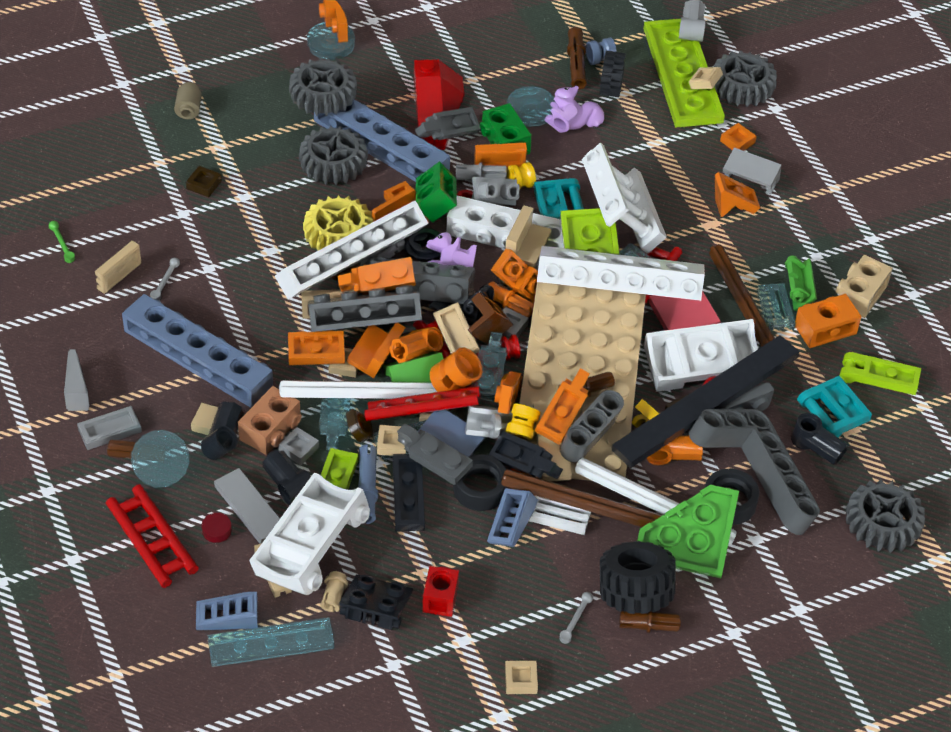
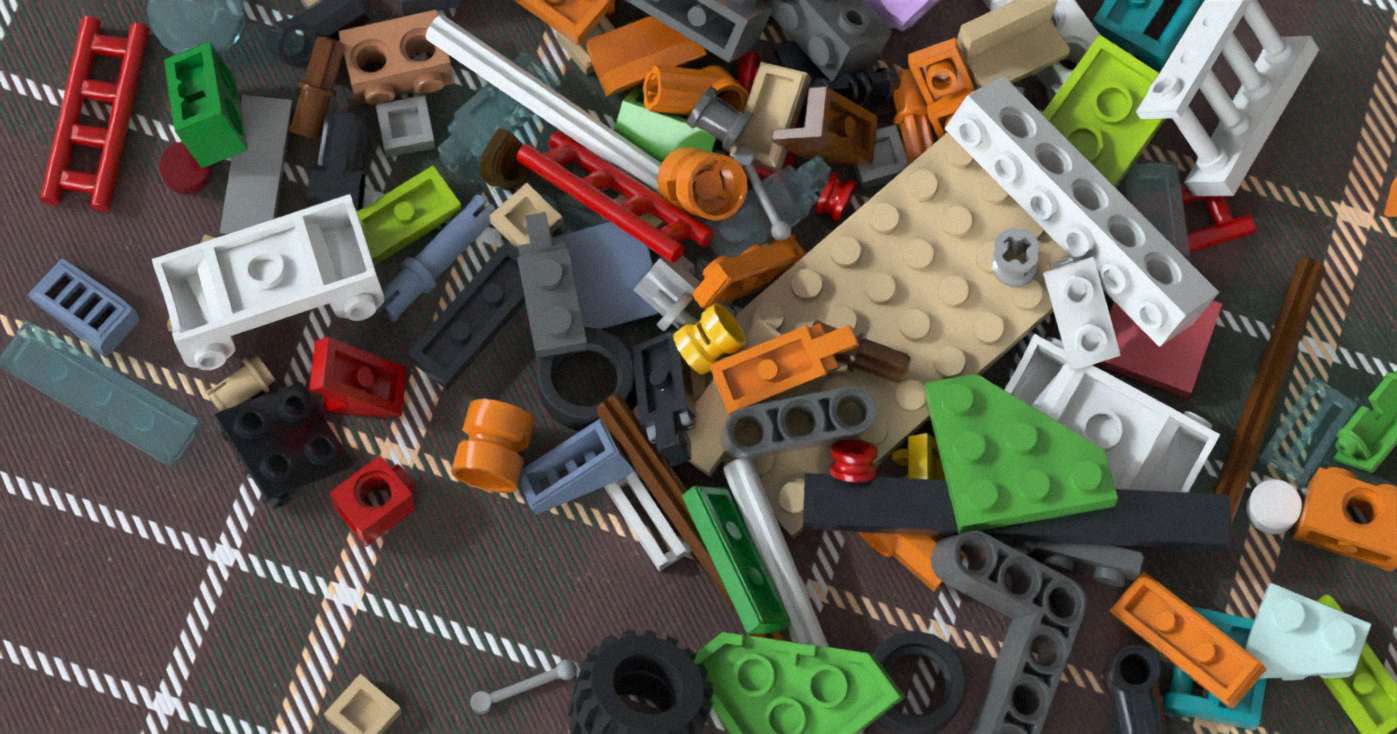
camera: 40 degrees right, 20 degrees up
(207, 488) = (205, 104): none -> green brick
(248, 451) = (317, 87): none -> reddish brown axle
(383, 552) = (356, 380): none -> red slope
(440, 341) = (719, 119): none -> dark grey bush
(470, 532) = (491, 454): none -> orange wheel
(506, 366) = (780, 229): none -> light grey hinge
(615, 305) = (1018, 242): none -> light grey bush
(618, 496) = (736, 560): none -> green tile
(626, 425) = (853, 460): none -> red bush
(661, 309) = (1081, 312): none -> white hinge
(686, 380) = (1010, 459): none -> bright green plate
(795, 337) = (1274, 506): none -> white tile
(815, 400) = (1188, 640): none -> orange tile
(854, 371) = (1304, 637): none -> light aqua wing

